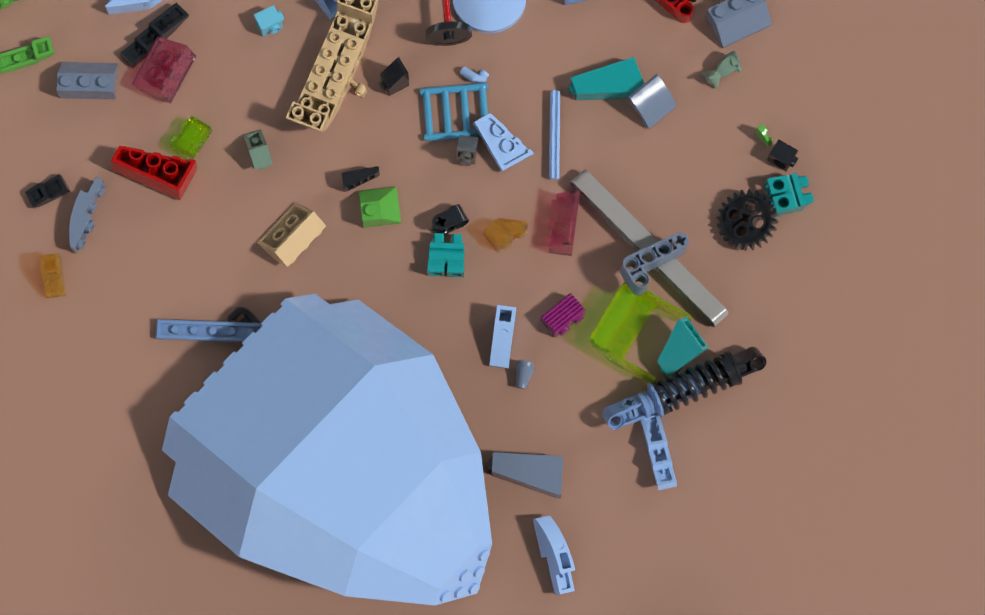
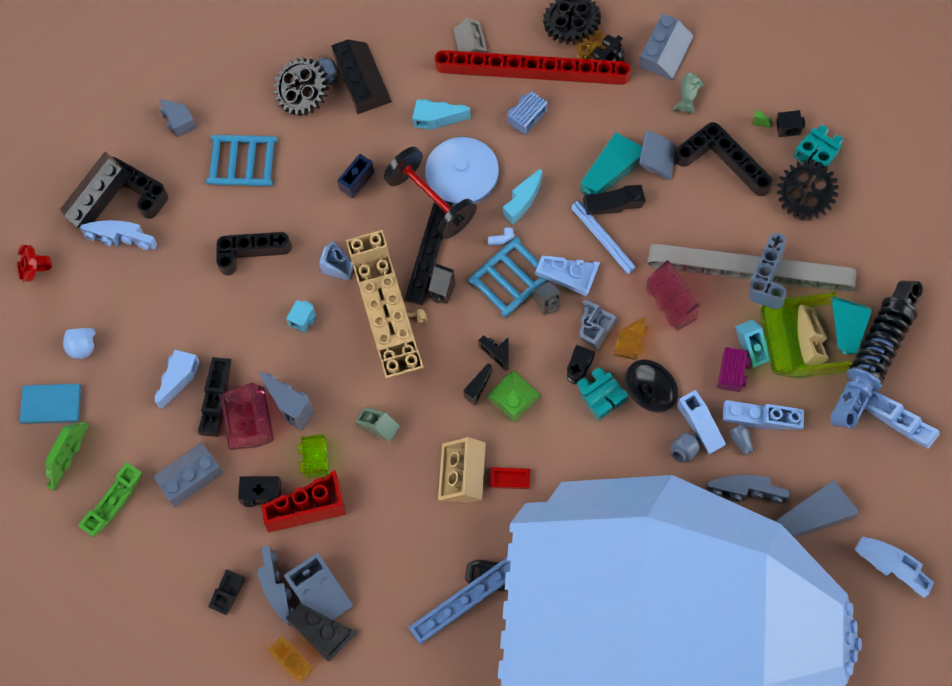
camera: 30 degrees left, 5 degrees down
(90, 272) = (320, 631): none -> black wing
(113, 241) = (318, 588): none -> sand blue slope
(125, 124) = (251, 485): none -> black brick
(202, 80) = (293, 406): none -> sand blue slope
(324, 267) = (510, 478): none -> red tile
(396, 165) = (498, 354): none -> black slope
(402, 47) = (426, 257): none -> black tile
(474, 346) = (684, 447): none -> sand blue head
(489, 200) = (596, 324): none -> sand blue slope
(489, 407) = (739, 486): none -> sand blue slope
(496, 279) = (651, 386): none -> black dish
(518, 55) = (522, 197): none -> medium azure slope
(554, 368) = (764, 416): none -> light blue slope
(587, 112) = (614, 201): none -> black slope
(596, 305) = (753, 340): none -> medium azure slope
(646, 336) = (811, 336): none -> tan slope
(711, 143) = (726, 155): none -> black beam

